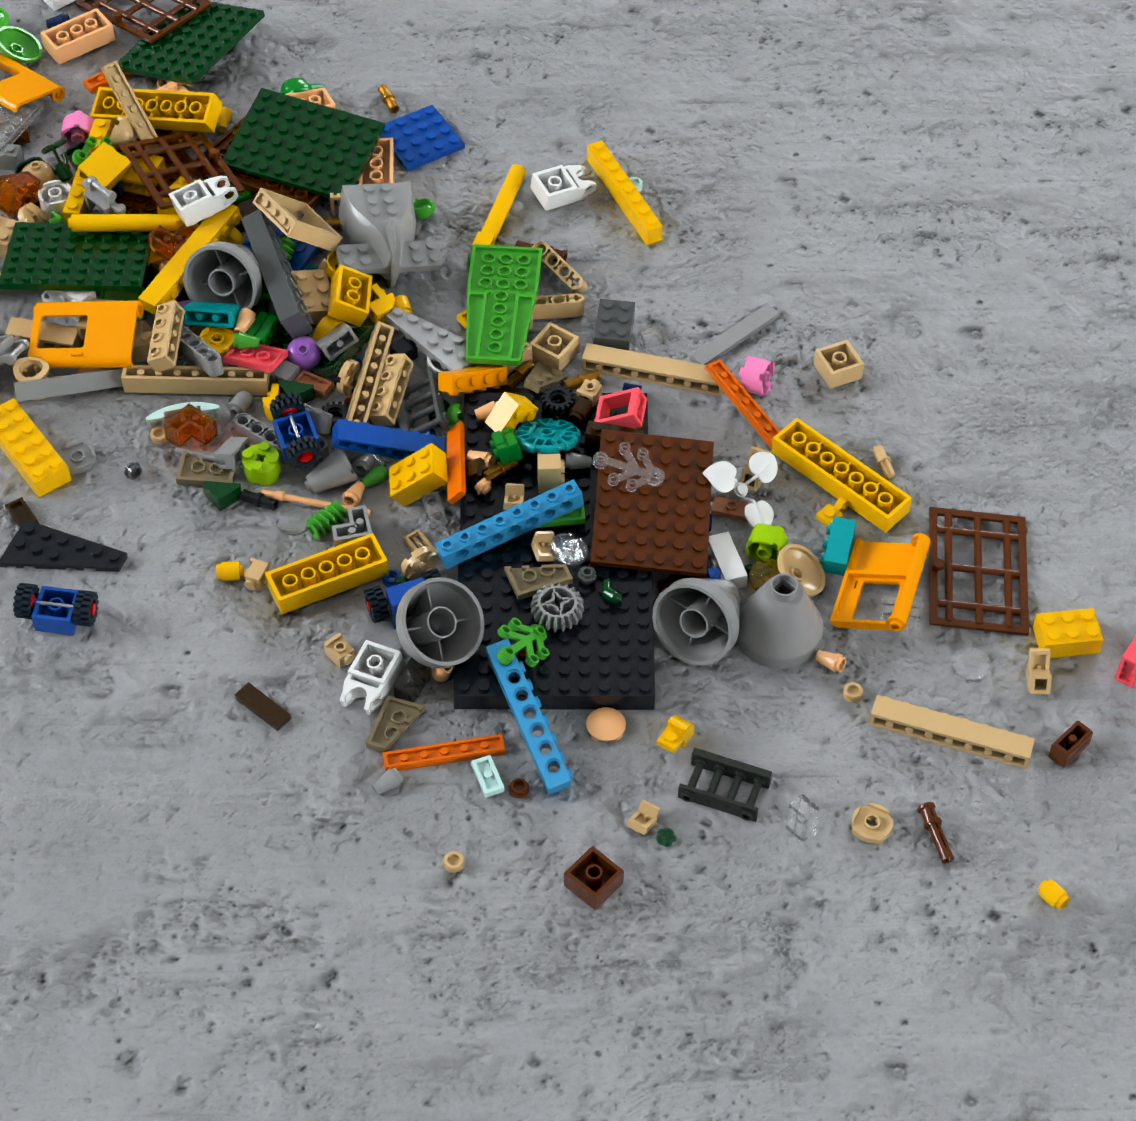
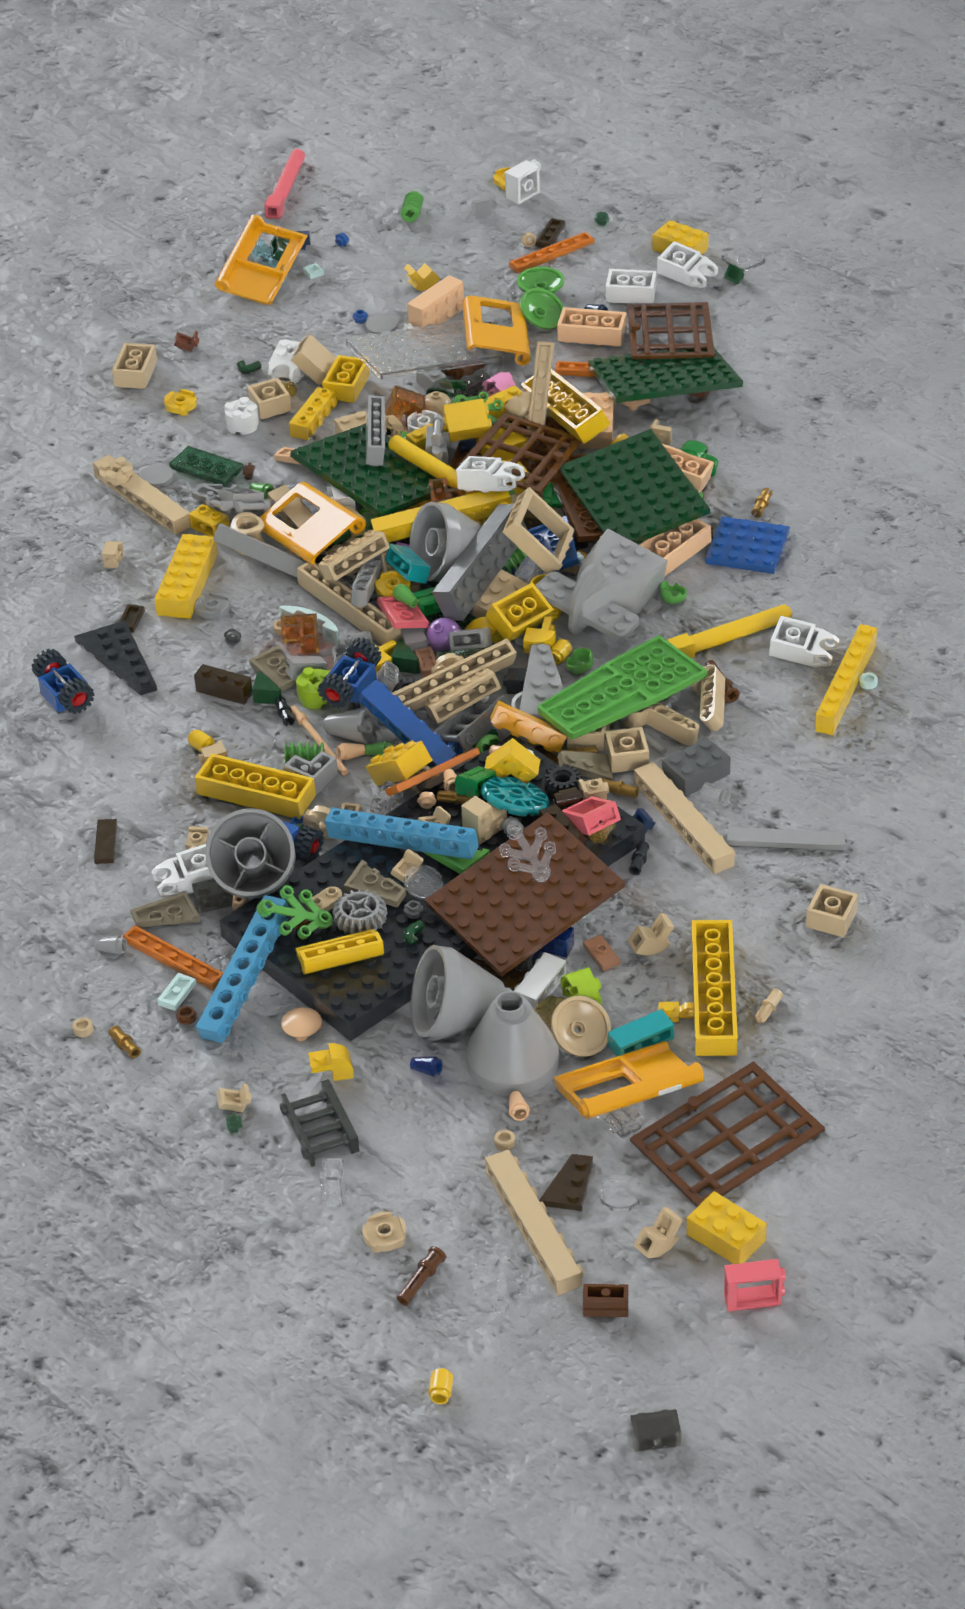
camera: 50 degrees right, 10 degrees down
(46, 135) = (474, 383): none -> clear smoke brick
(47, 222) = (375, 430): none -> light grey brick
(183, 513) = (223, 684): none -> dark brown brick
(243, 91) = (663, 433): none -> tan bracket
(245, 320) = (422, 582): light nougat cone -> none
(313, 257) = (528, 570): none -> clear brick
(428, 304) = (580, 661): none -> bright green hair
(504, 845) = (124, 1042): none -> pearl gold pin
(519, 614) = (327, 898): none -> tan plate
(585, 646) = (340, 951): none -> yellow brick
(593, 878) = (145, 1105): reddish brown brick -> none
(664, 421) = (639, 858): none -> black pin
(713, 573) = (509, 979): blue plate -> none
(723, 479) = (649, 930): white plant -> none
(734, 682) = (428, 1065): none -> clear blue cone
(742, 400) = (715, 877): orange tile -> none
(756, 375) = (751, 873): bright pink brick -> none
(934, 686) = (570, 1184): none -> dark brown wing

